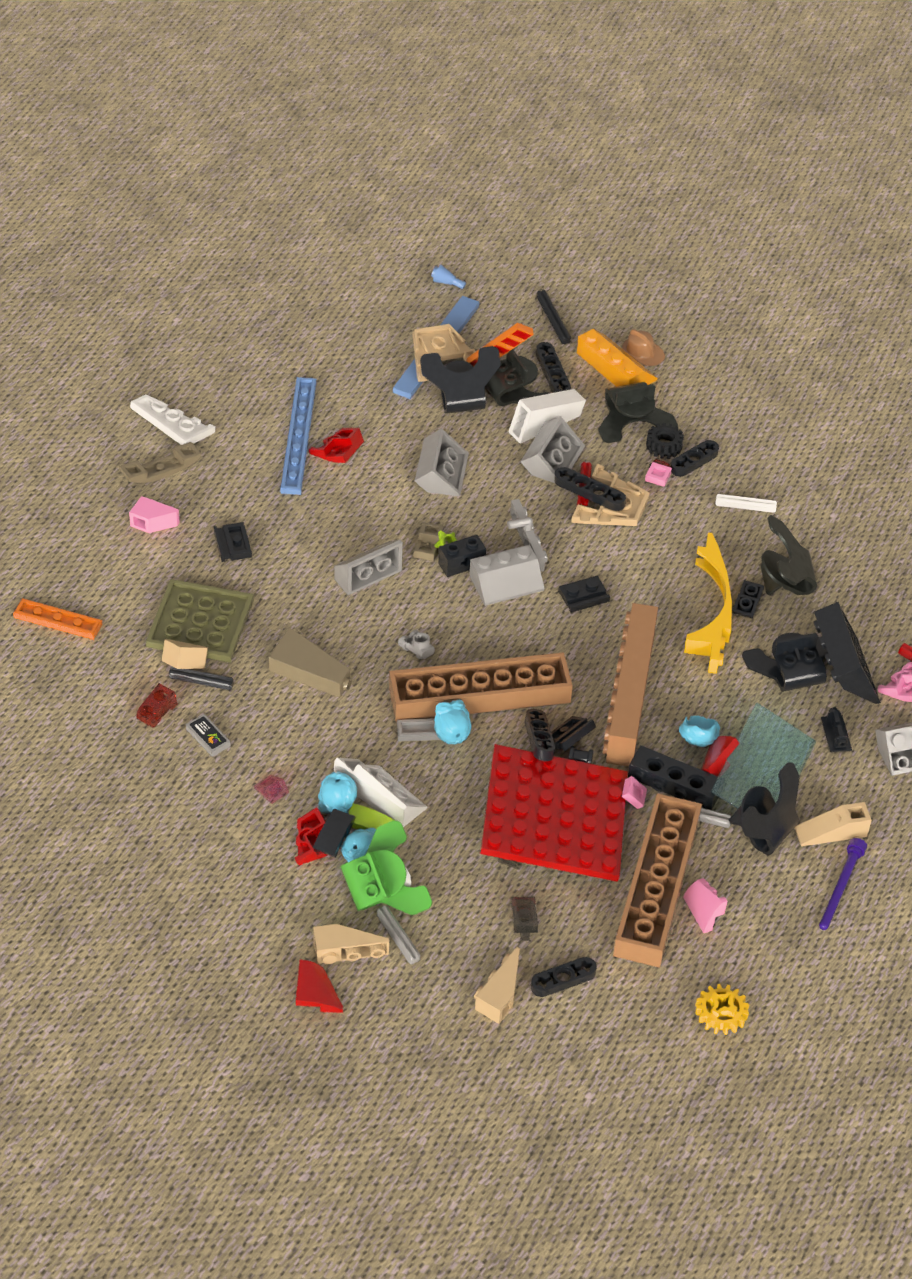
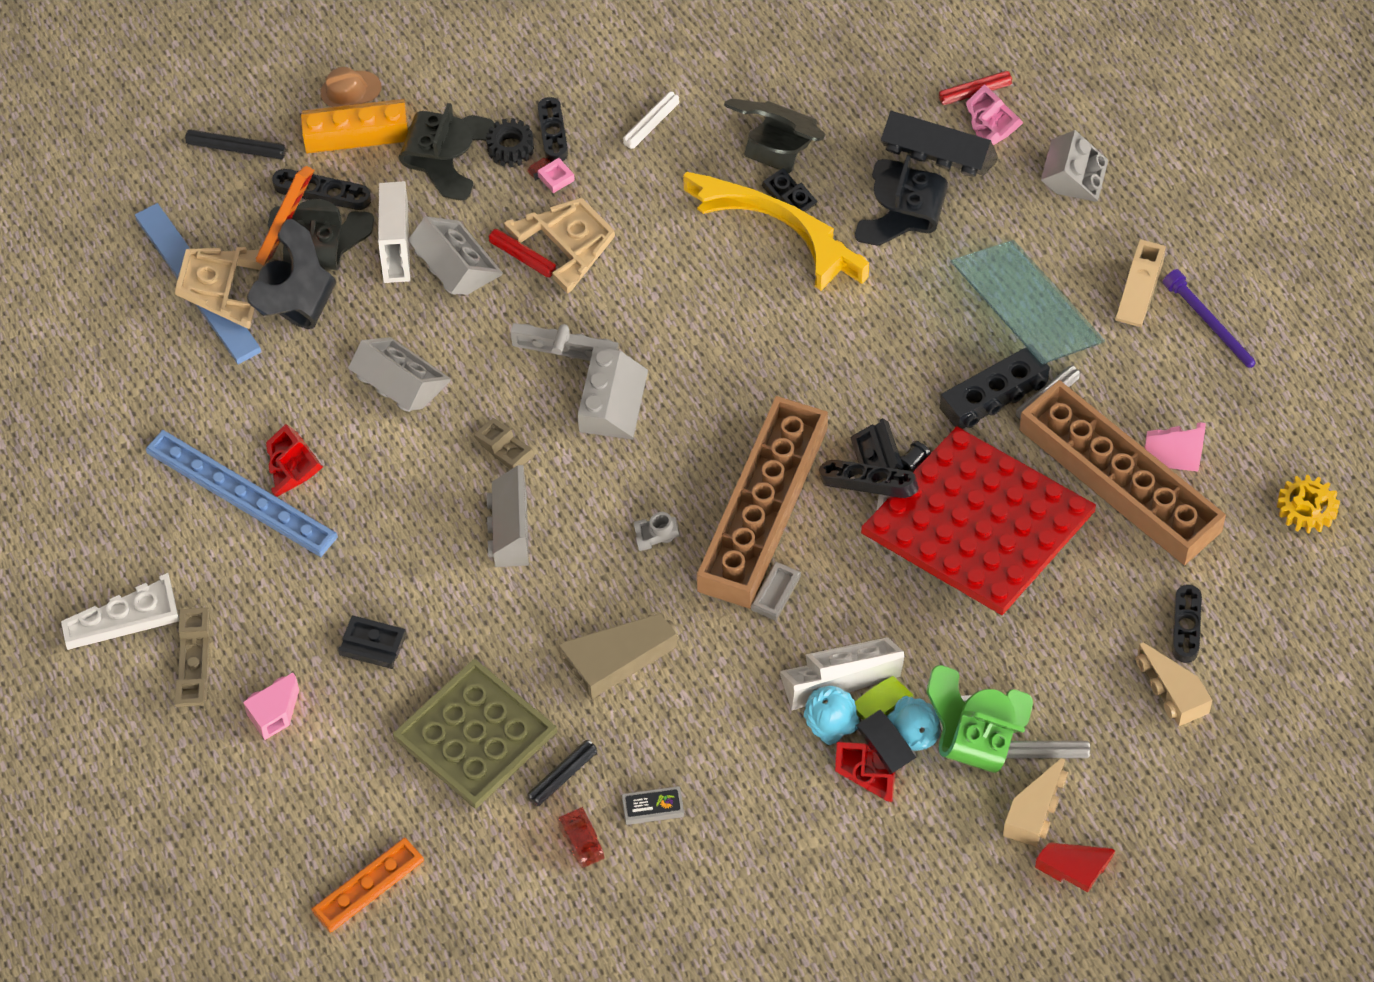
camera: 55 degrees left, 10 degrees up
(184, 655) = (522, 775): tan slope -> none
(272, 788) = (769, 776): clear pink slope -> none
(442, 275) = (86, 216): medium blue cone -> none
(443, 537) = (522, 426): lime plate -> none
(452, 722) = (798, 551): medium azure hair -> none
(456, 556) = (555, 422): black brick -> none
(524, 916) = (1095, 617): clear smoke plate -> none
(584, 594) = (681, 337): black plate -> none
(611, 499) = (539, 245): black beam -> none
(630, 685) = (853, 358): medium nougat brick -> none
(634, 792) = (990, 434): bright pink plate -> none
(699, 730) = (946, 331): medium azure hair -> none
(718, 753) = (990, 333): red slope -> none
(767, 821) = (1108, 338): black piece -> none
(836, 731) = (1016, 216): black hinge -> none

